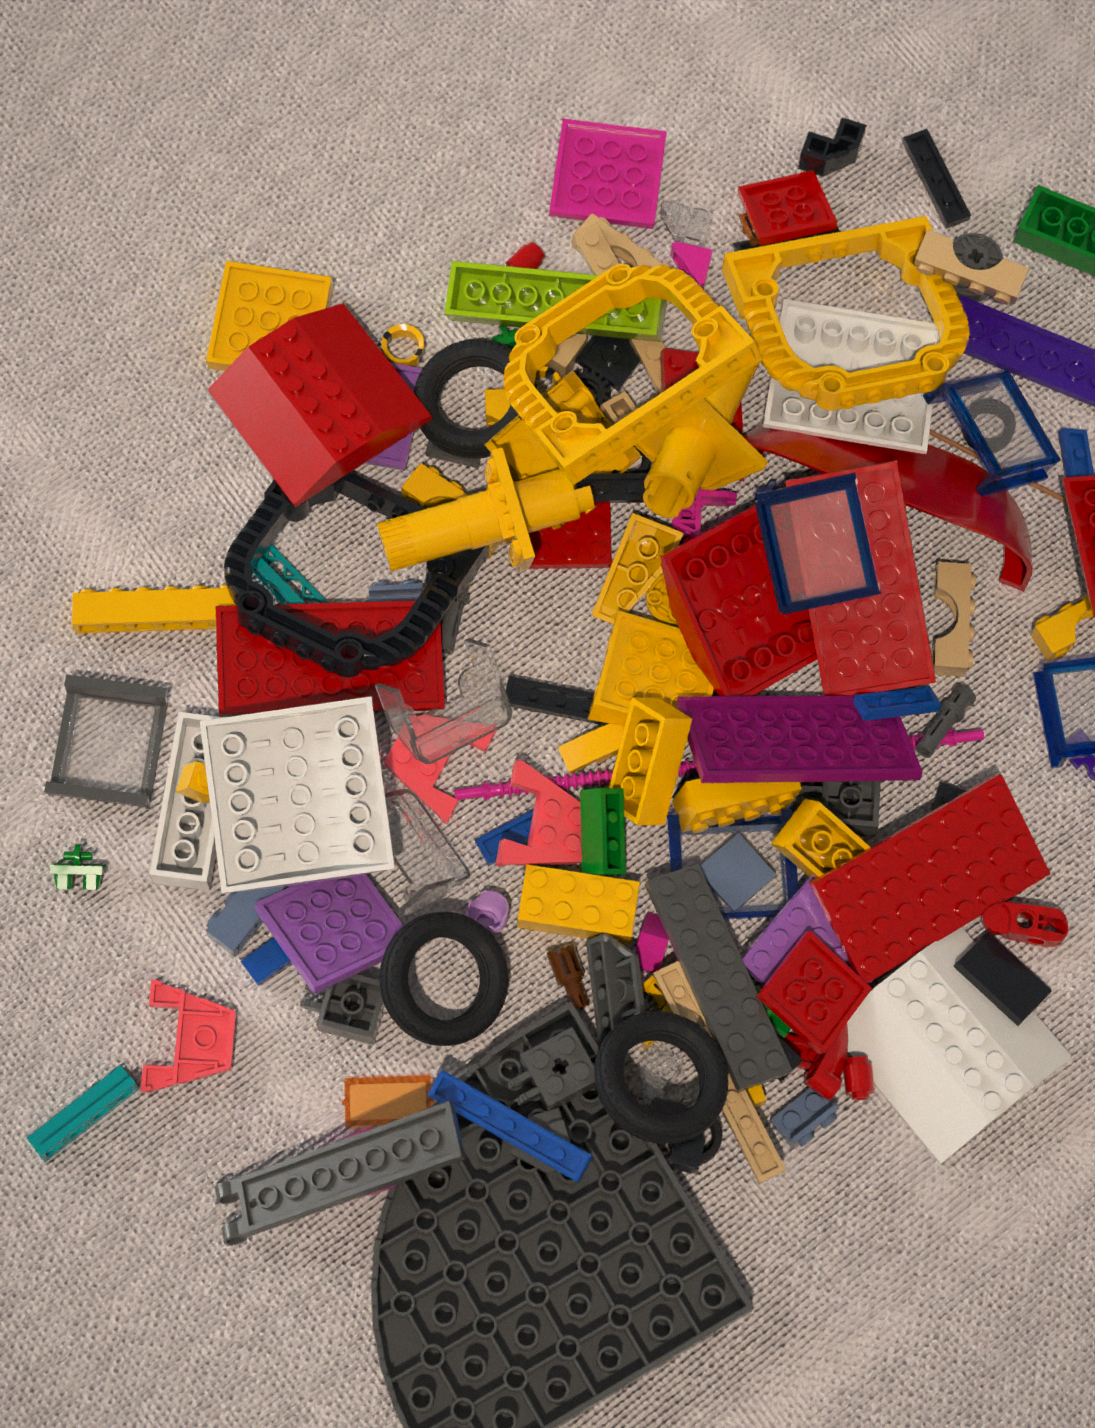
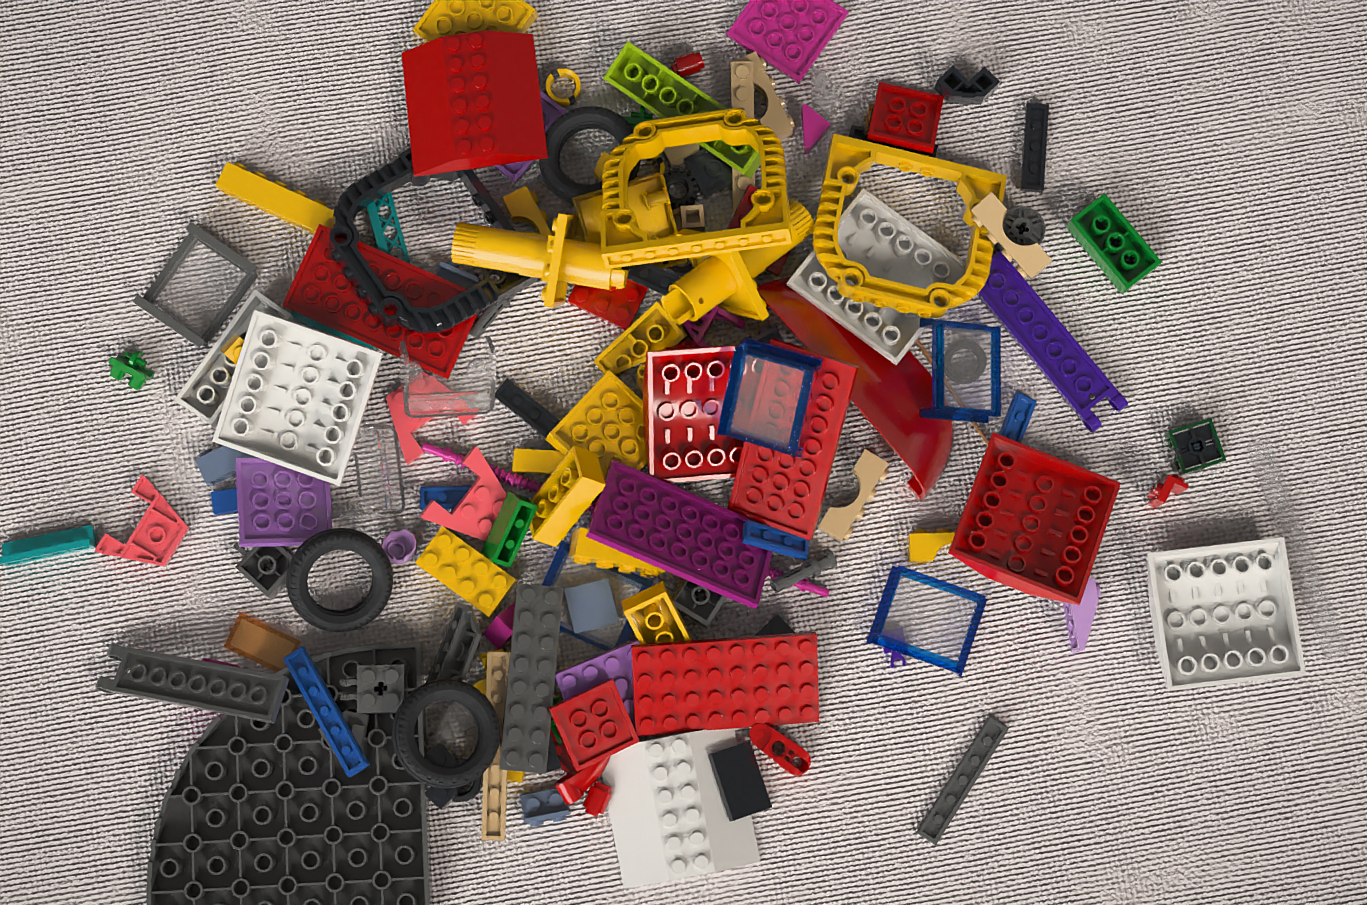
camera: 30 degrees right, 10 degrees up
(569, 974) = (433, 624): reddish brown arm -> none

